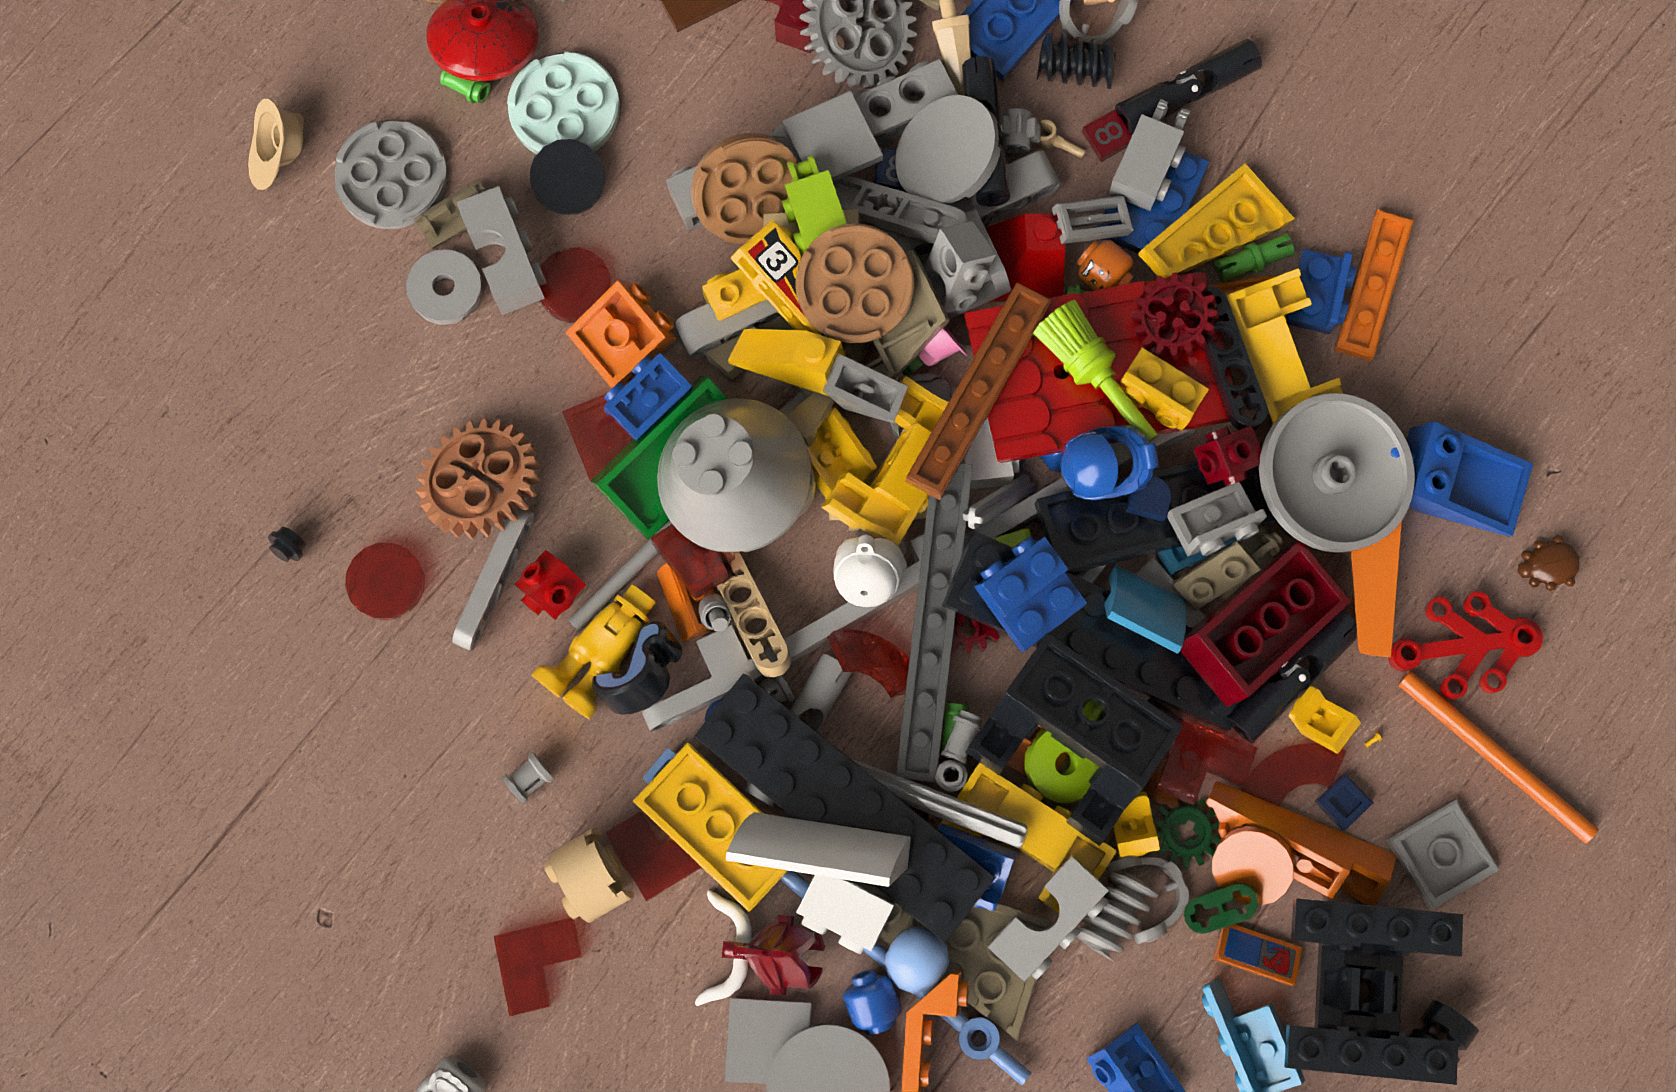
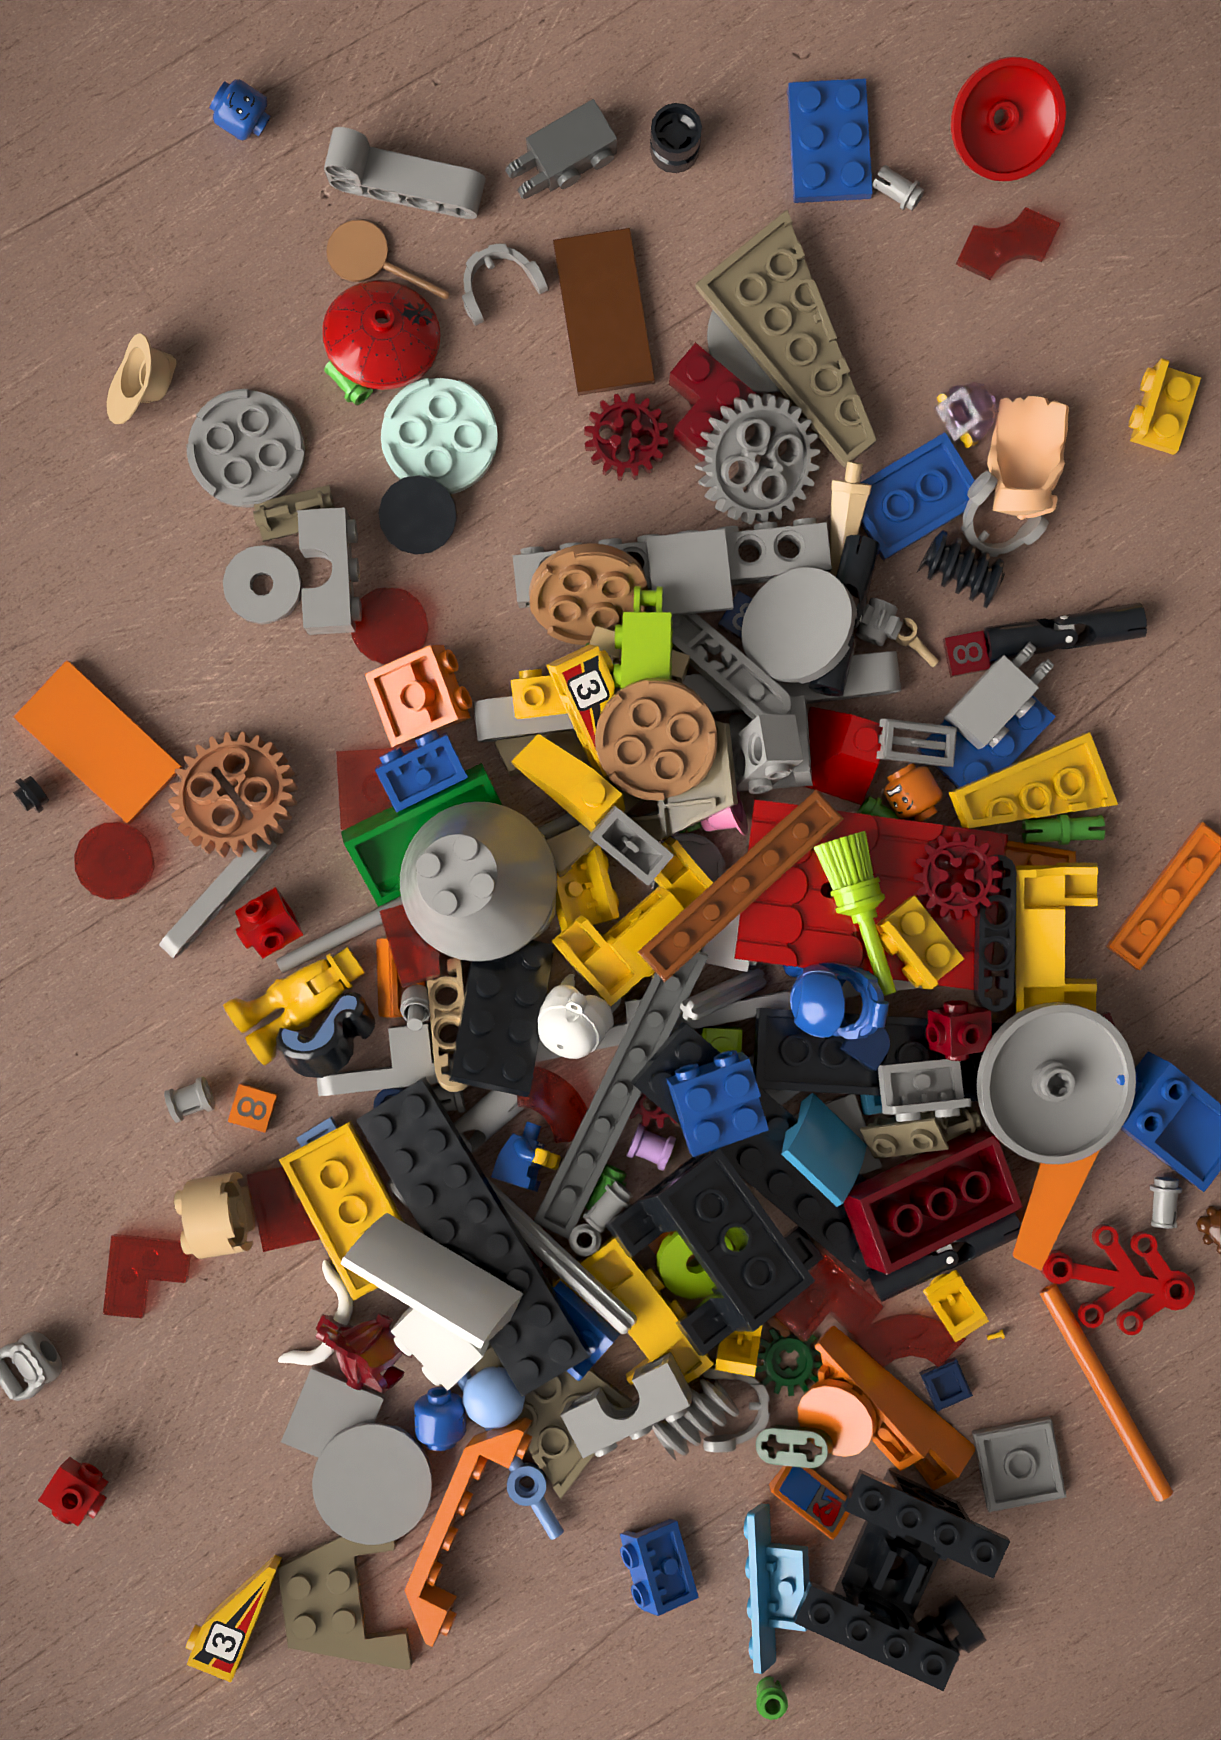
camera: 15 degrees right, 10 degrees up
(335, 477) = (98, 742): none -> orange tile
(591, 766) = (253, 1107): none -> orange tile
(750, 60) = (644, 424): none -> dark red gear
(799, 594) = (500, 1020): none -> black plate
(865, 724) = (522, 1159): none -> blue piece
(982, 672) = (651, 1147): none -> lavender bush
(1324, 283) = (1119, 883): blue bracket -> none
(1481, 559) = (1165, 1202): none -> light grey pin

